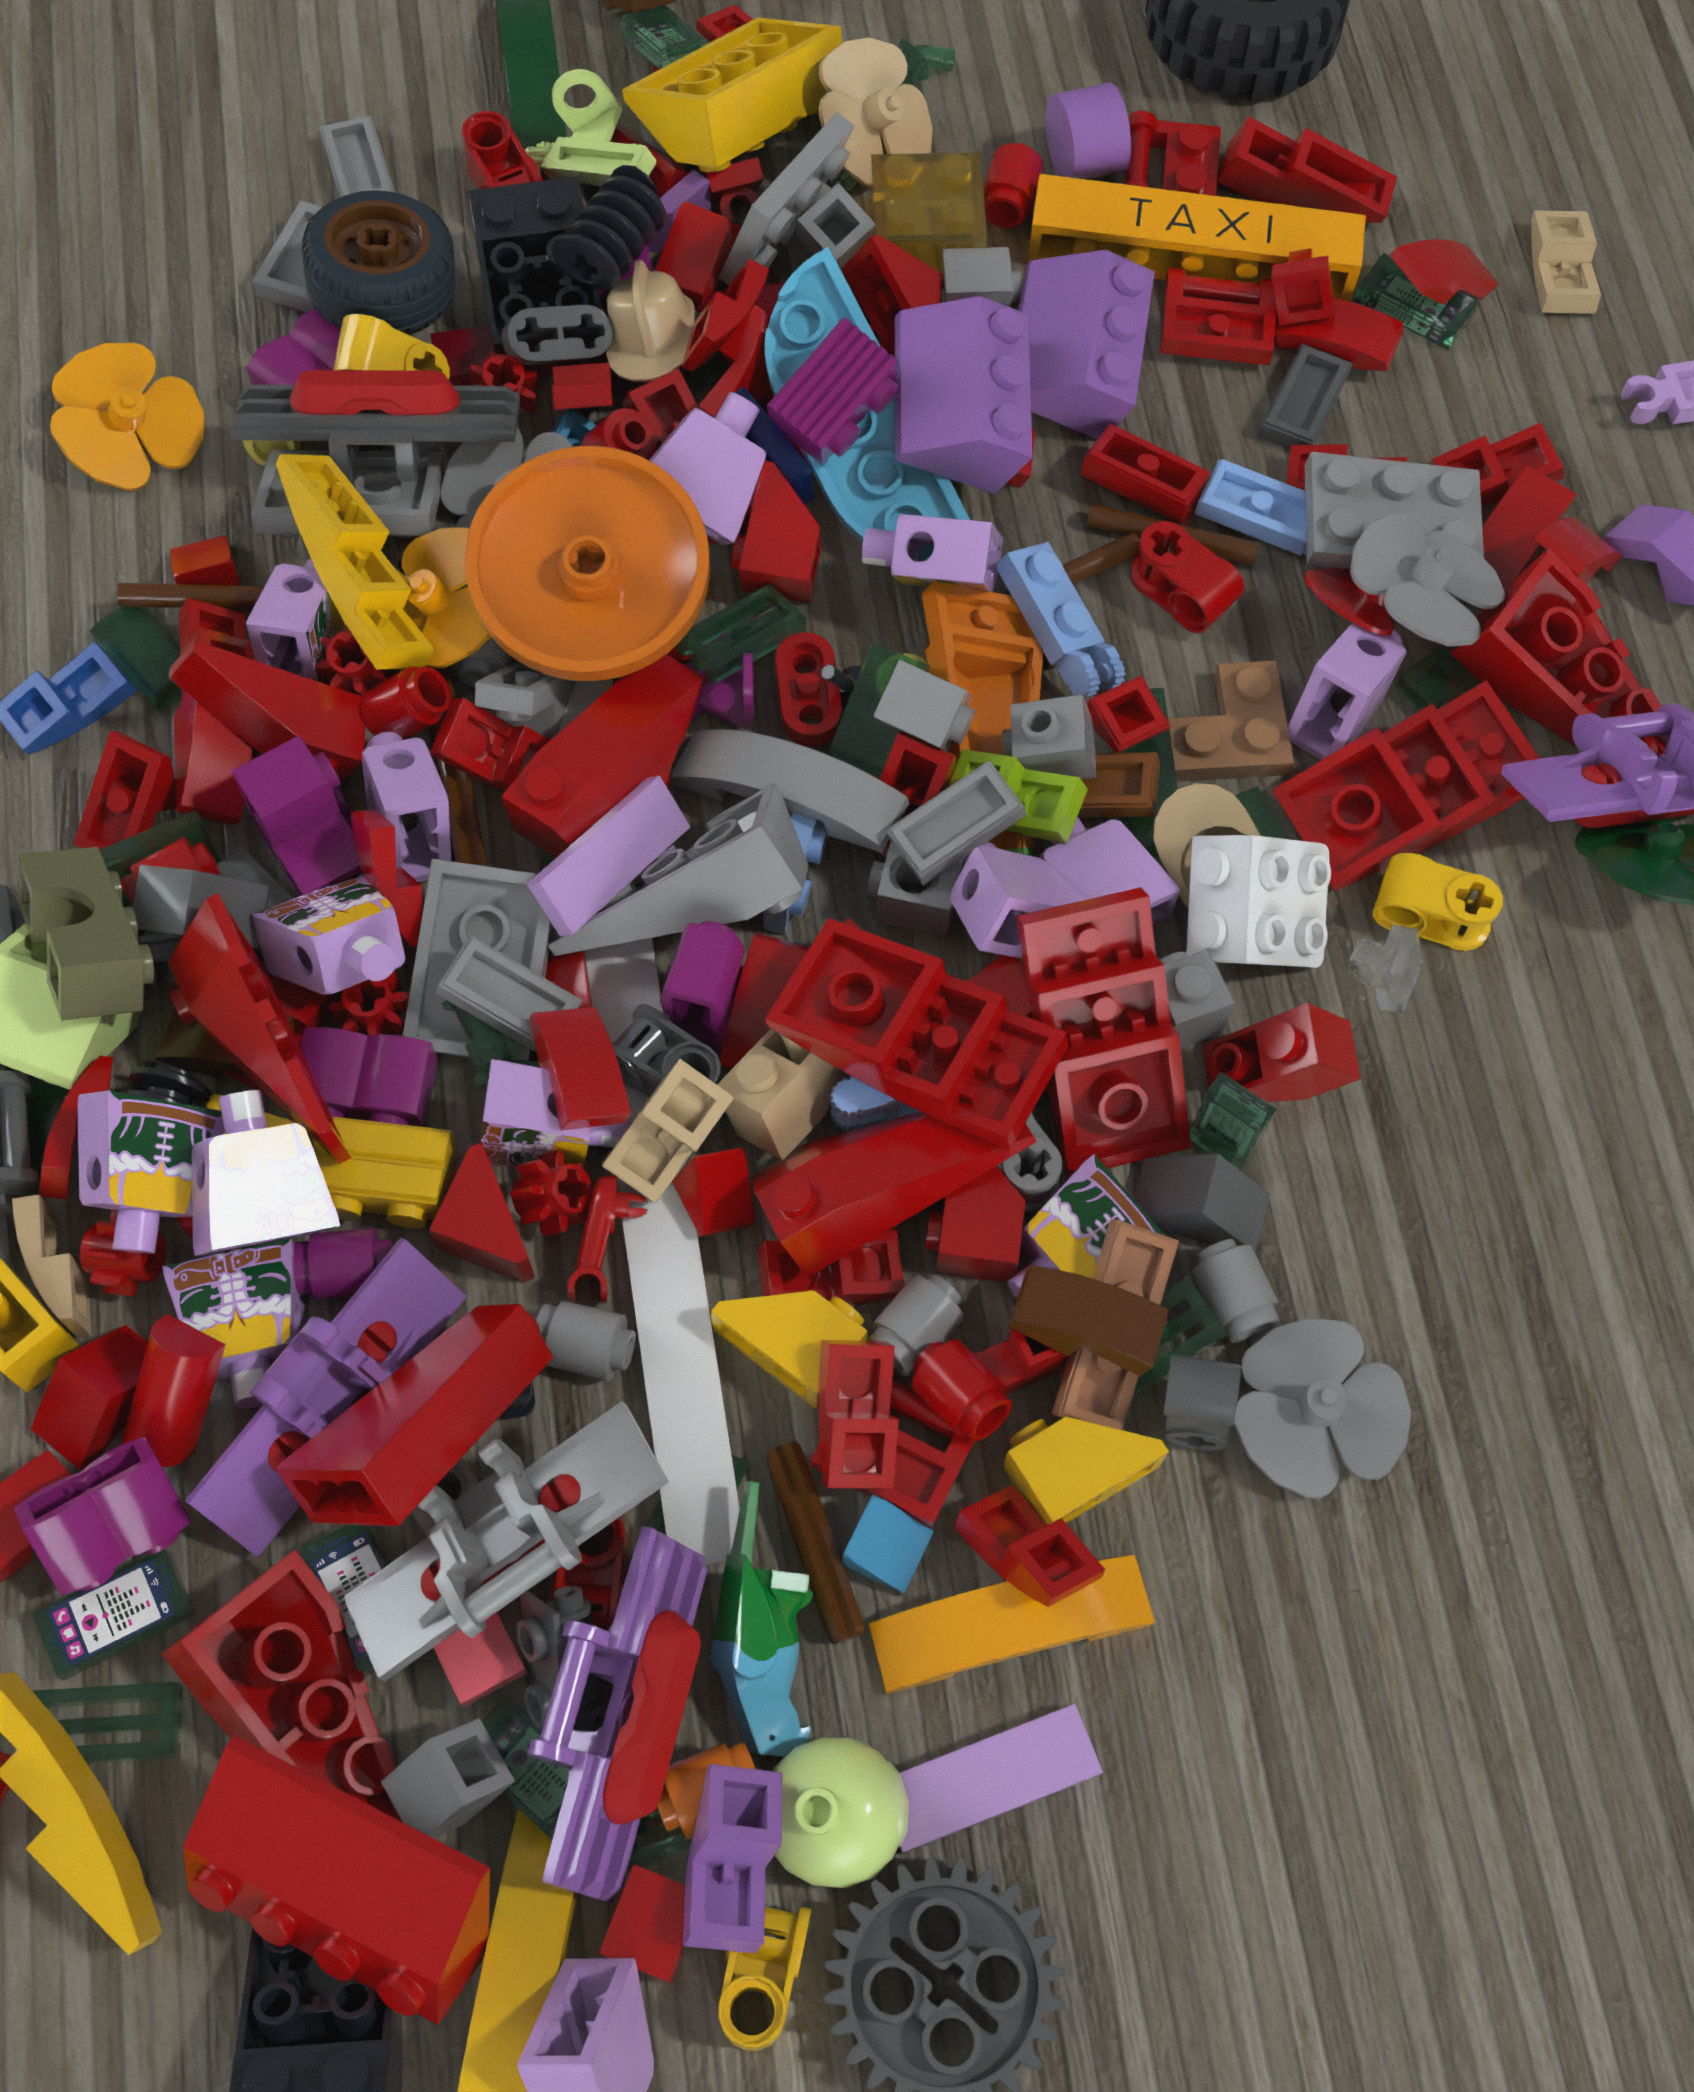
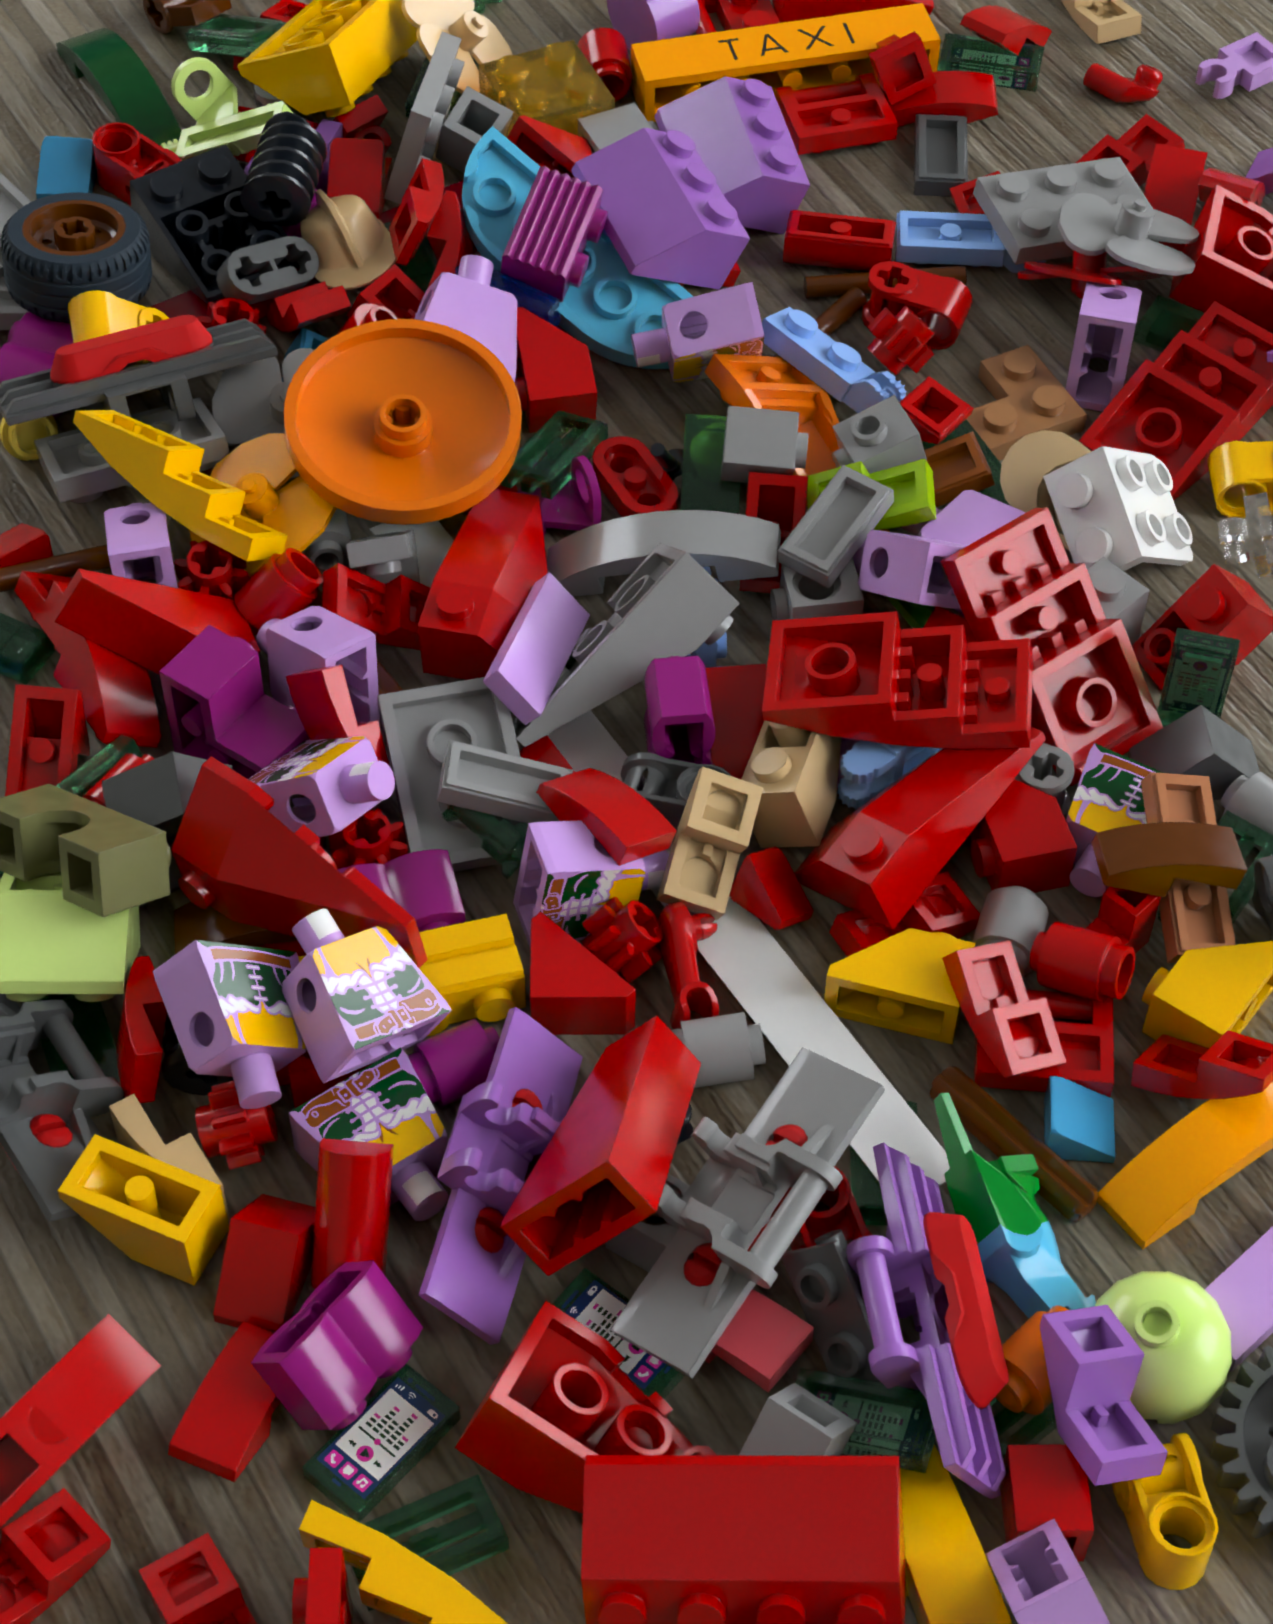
camera: 20 degrees left, 15 degrees down
(435, 146) = (66, 166): none -> dark azure slope
(1145, 615) = (900, 340): none -> red gear
(1540, 380) = (1121, 88): none -> red arm

